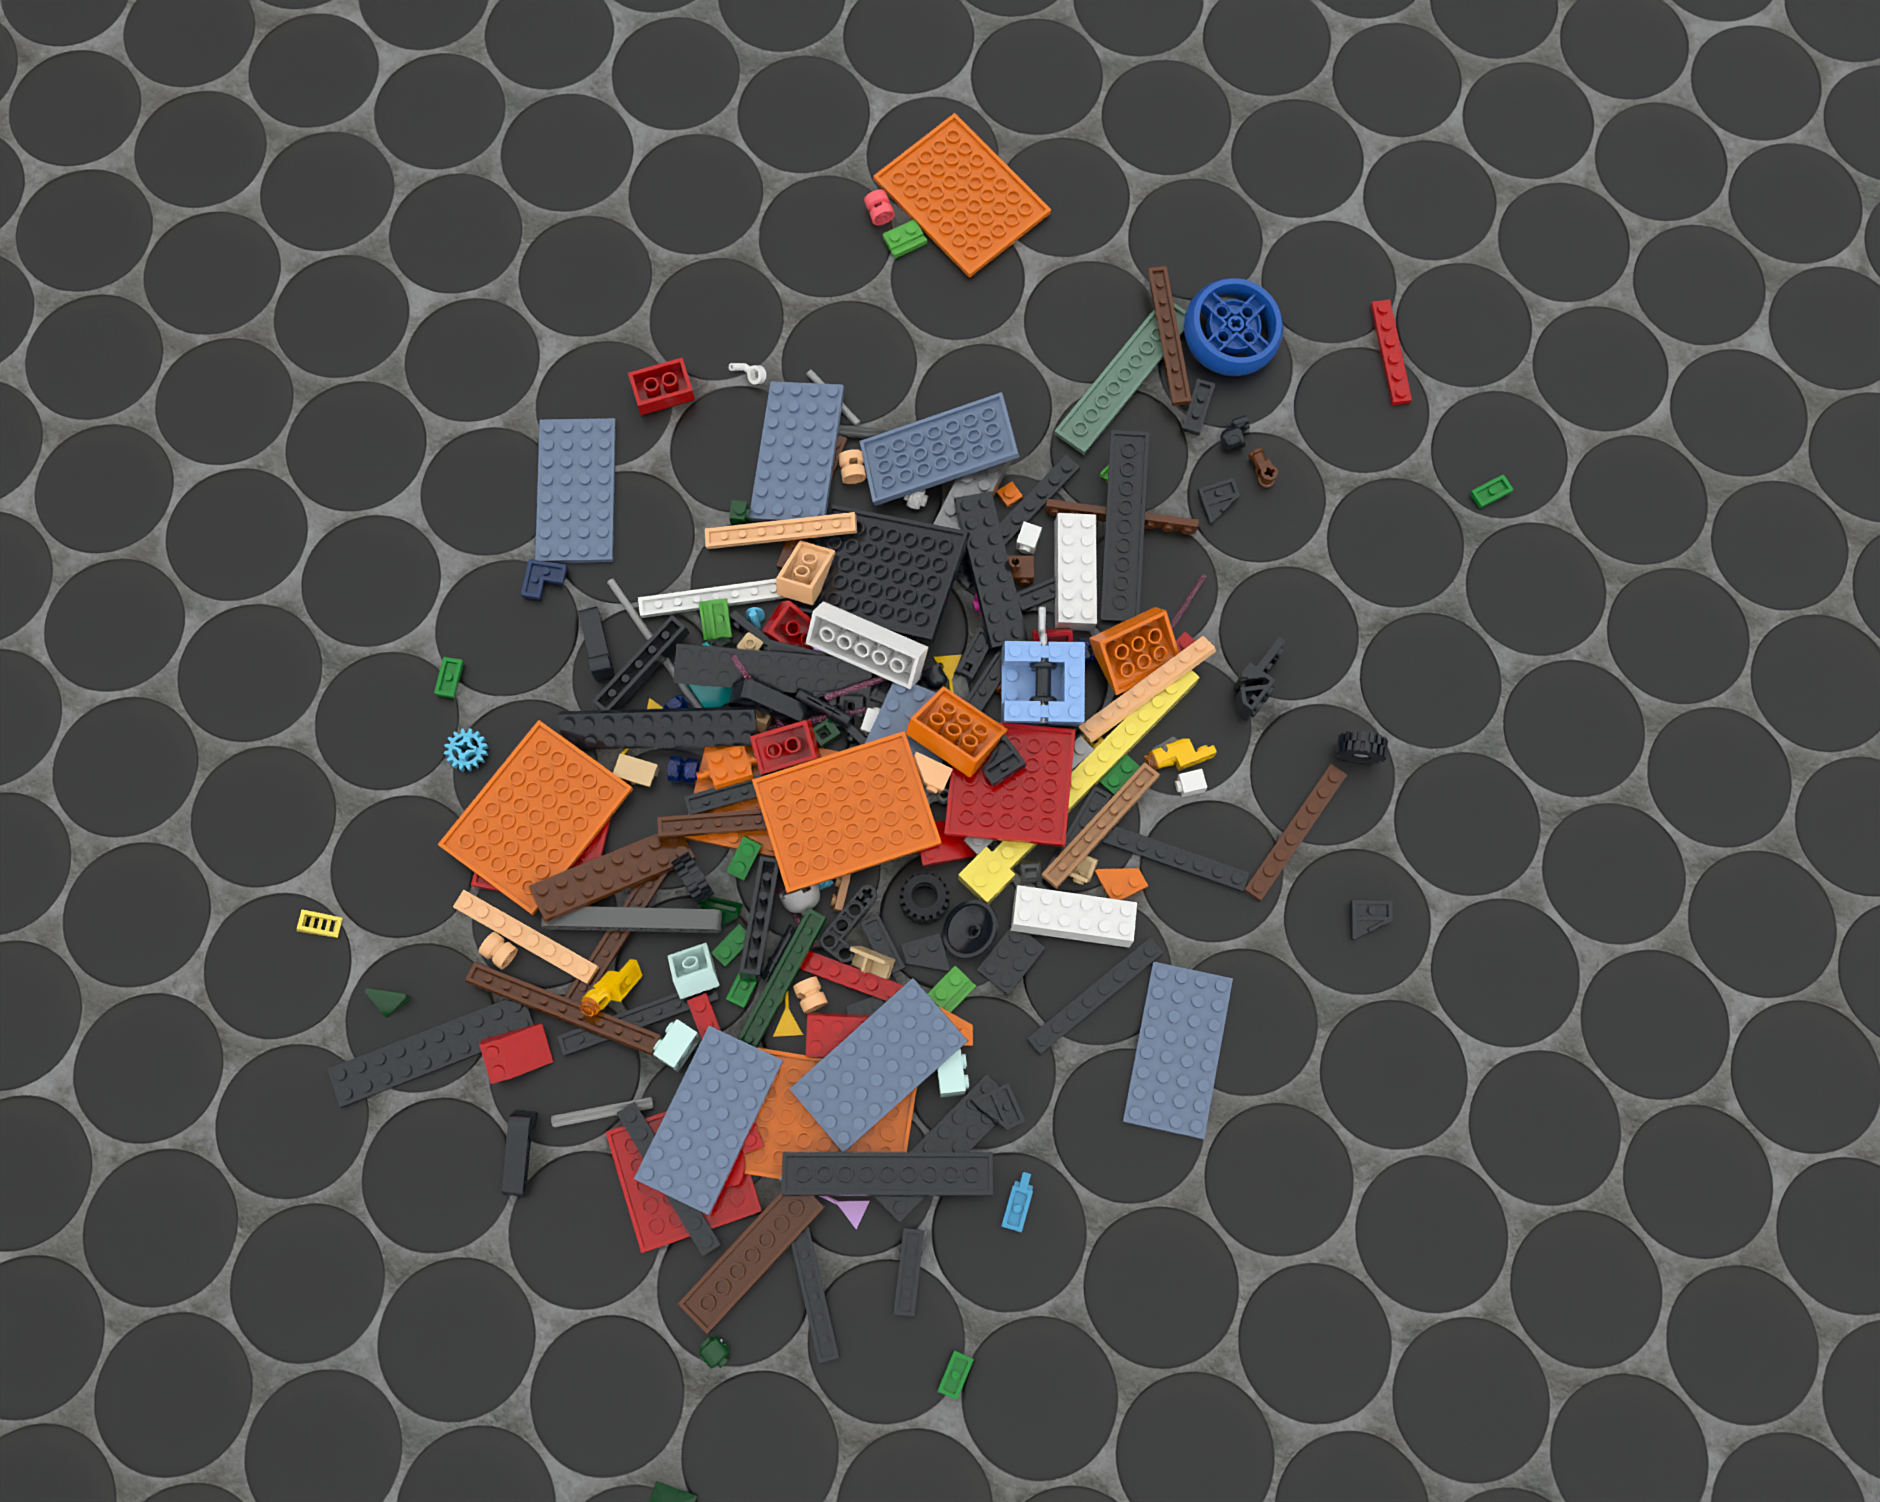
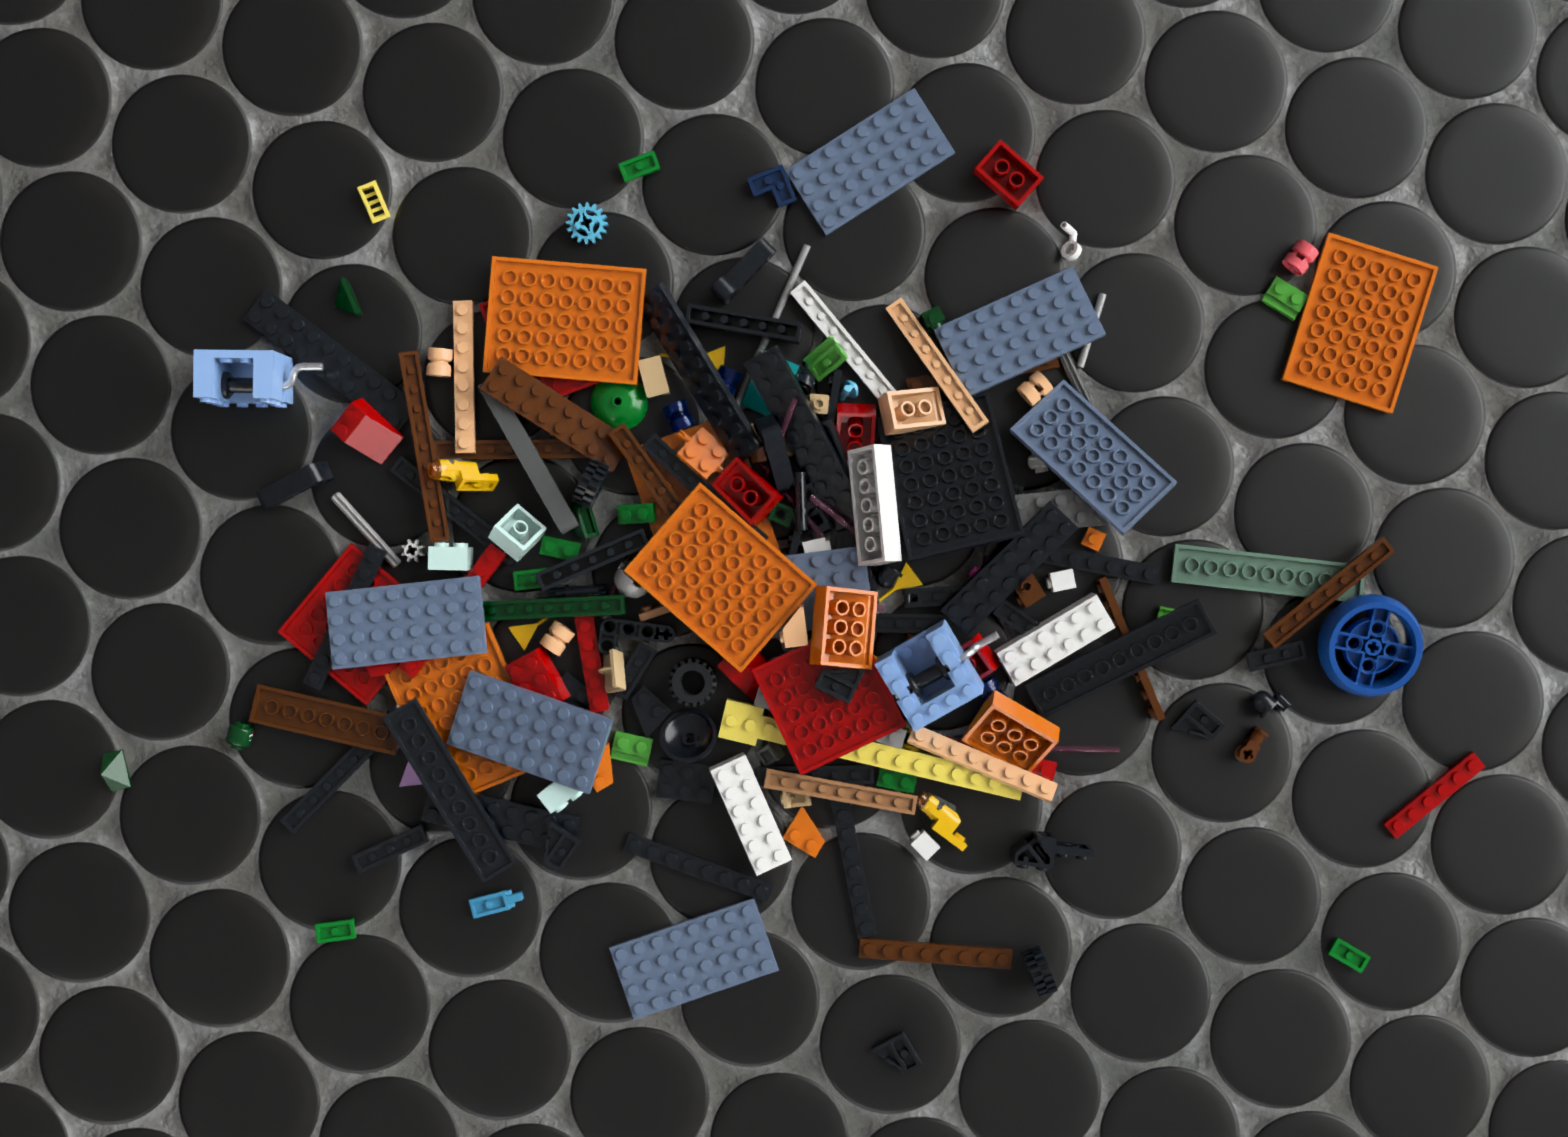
camera: 60 degrees right, 15 degrees up
(392, 1127) = (246, 377): none -> light blue piece
(632, 829) = (630, 411): none -> green dish
(645, 1073) = (407, 548): none -> white gear

